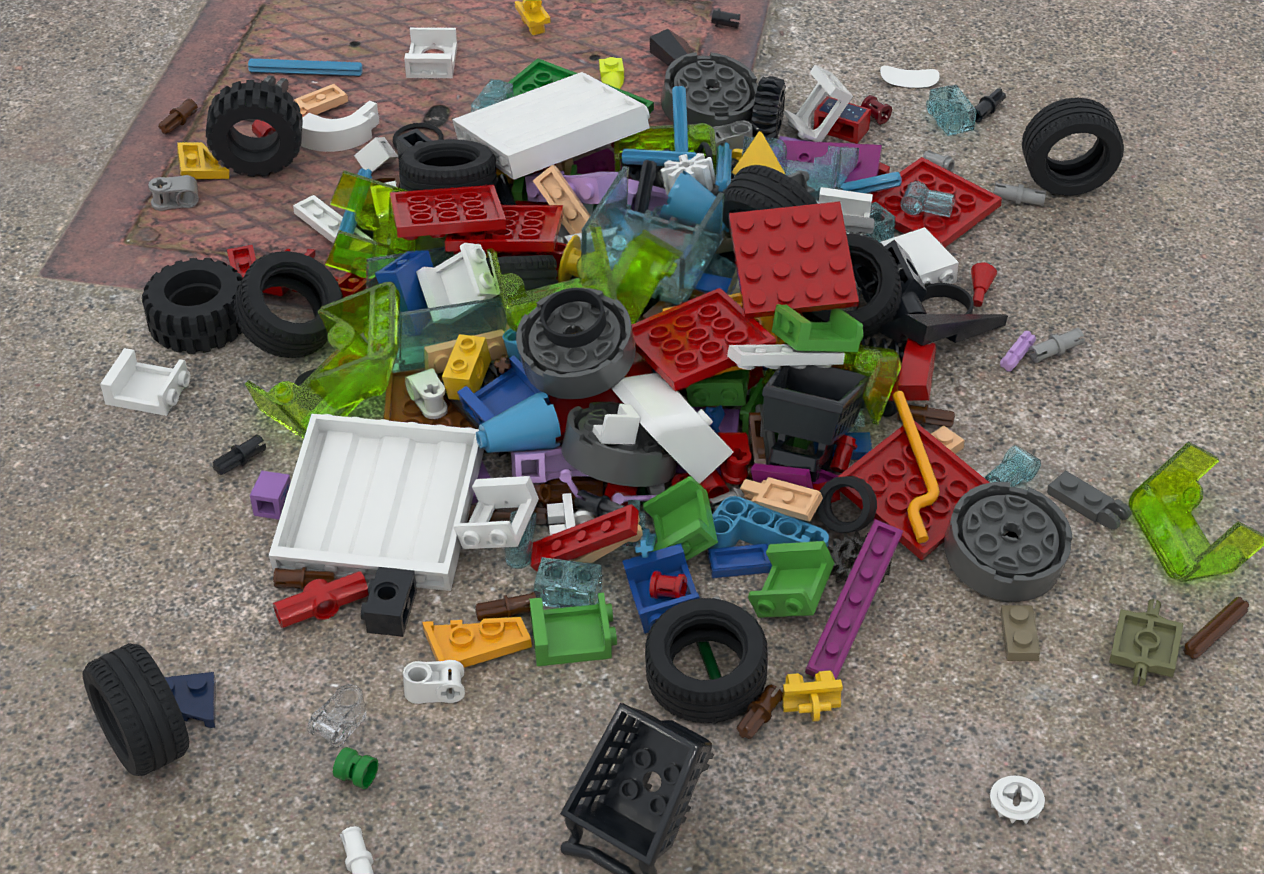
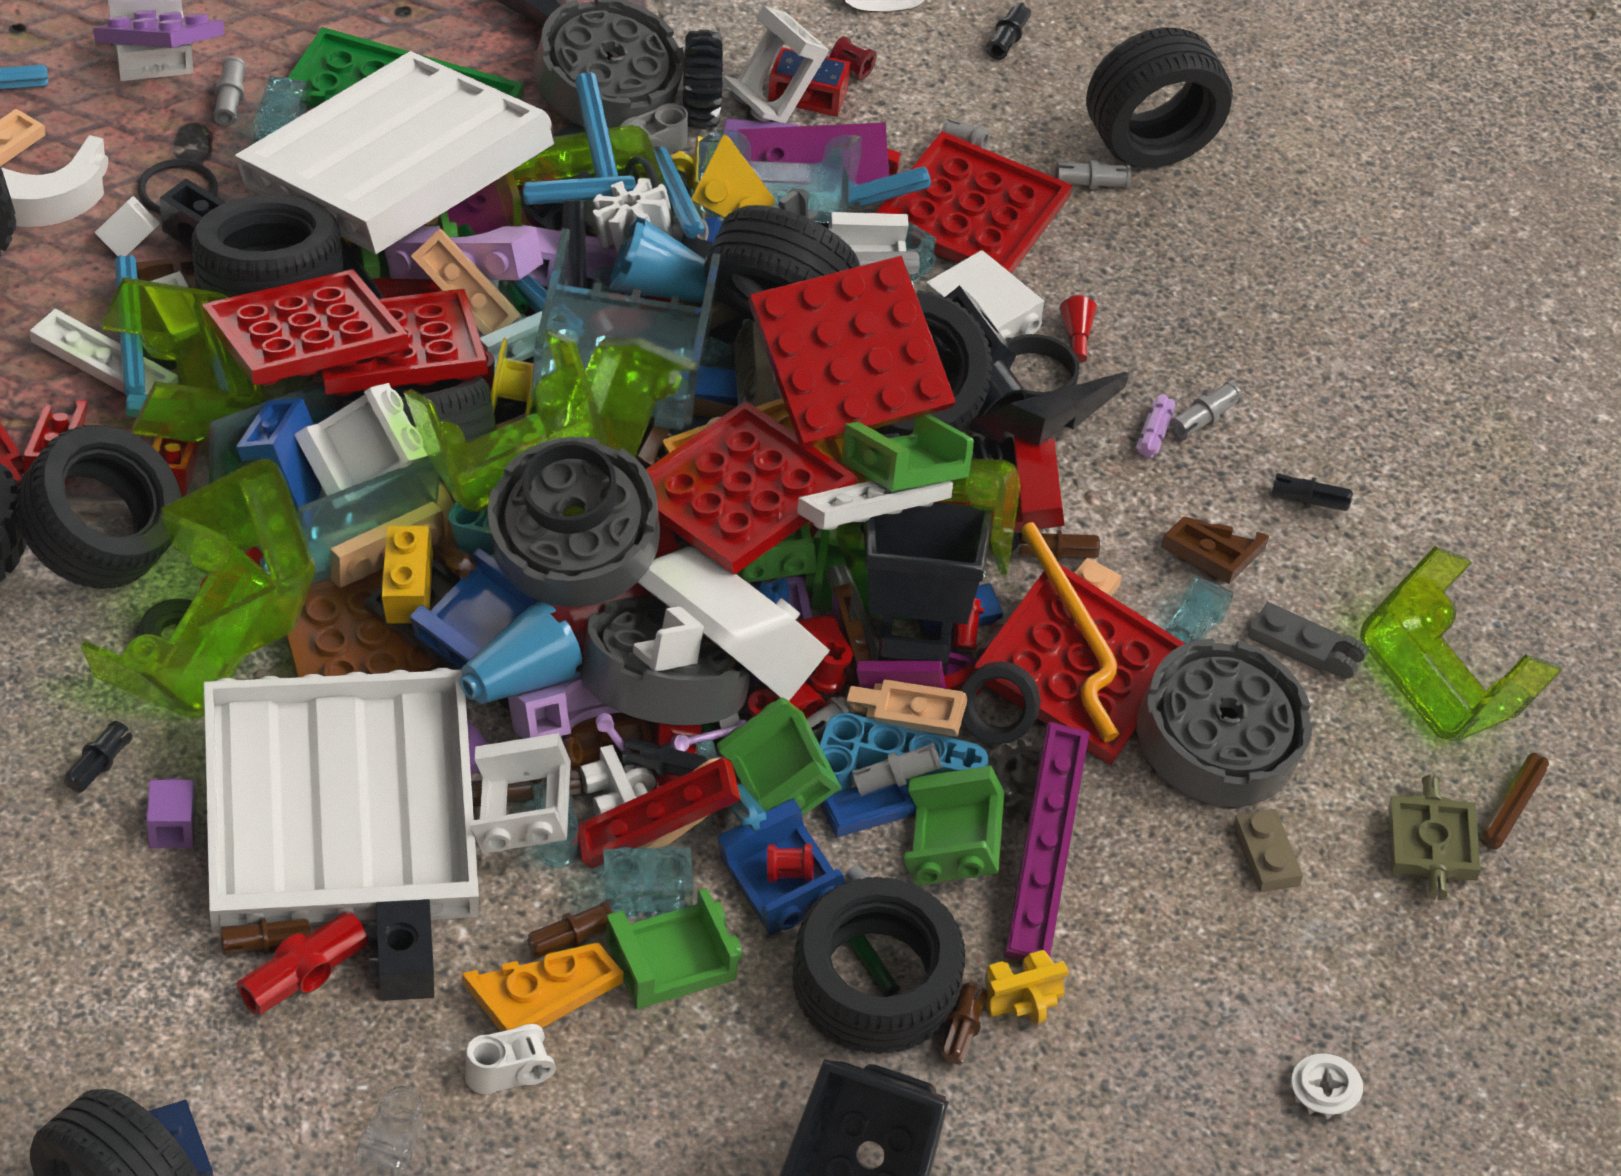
camera: 20 degrees left, 5 degrees up
(427, 393) = (352, 618): white piece -> none
(433, 46) = (164, 30): none -> medium lavender plate
(468, 88) = (229, 91): none -> light grey pin
(612, 71) = (439, 36): neon yellow plate -> none
(761, 536) = (897, 769): none -> light grey pin
(920, 198) = (962, 205): clear light blue piece -> none
(951, 110) = (961, 46): clear light blue brick -> none
(1036, 431) = (1213, 547): none -> reddish brown wing
(1118, 405) = (1311, 492): none -> black axle

